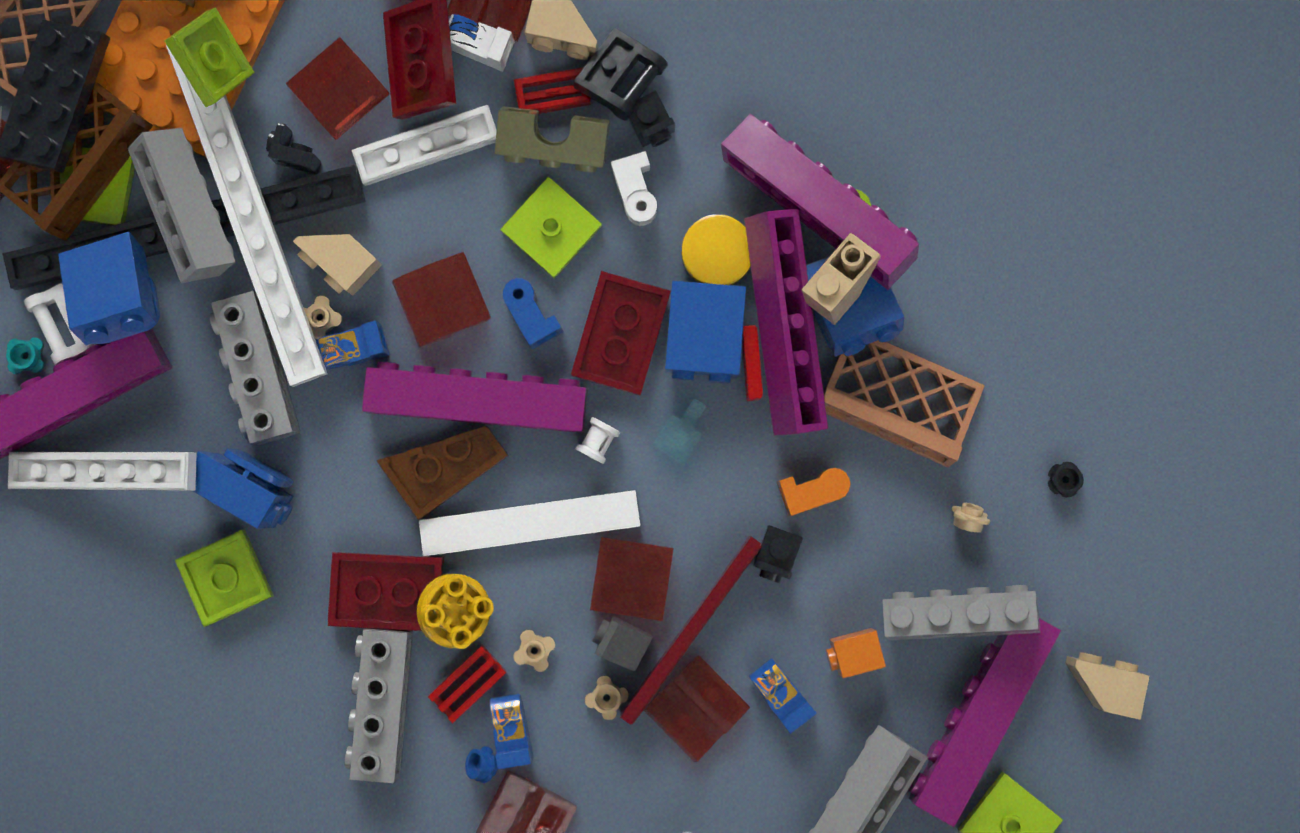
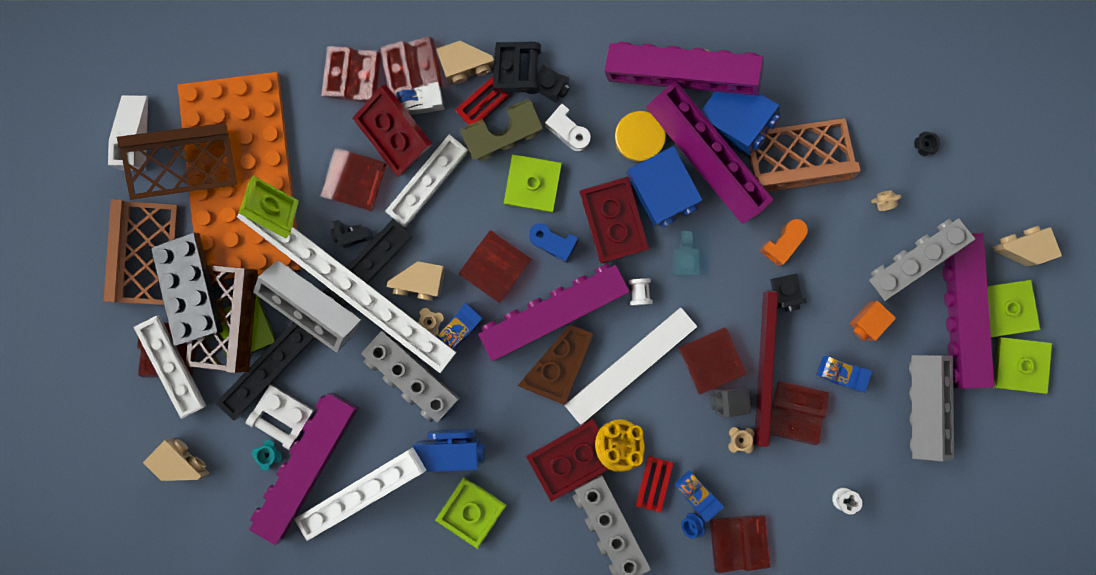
camera: 30 degrees left, 0 degrees up
(108, 290) = (295, 384): blue brick -> none
(538, 660) = (675, 434): tan plate -> none
(751, 363) = (708, 197): red tile -> none
(841, 278) = (729, 105): tan slope -> none
(1039, 746) = (1012, 308): none -> lime plate

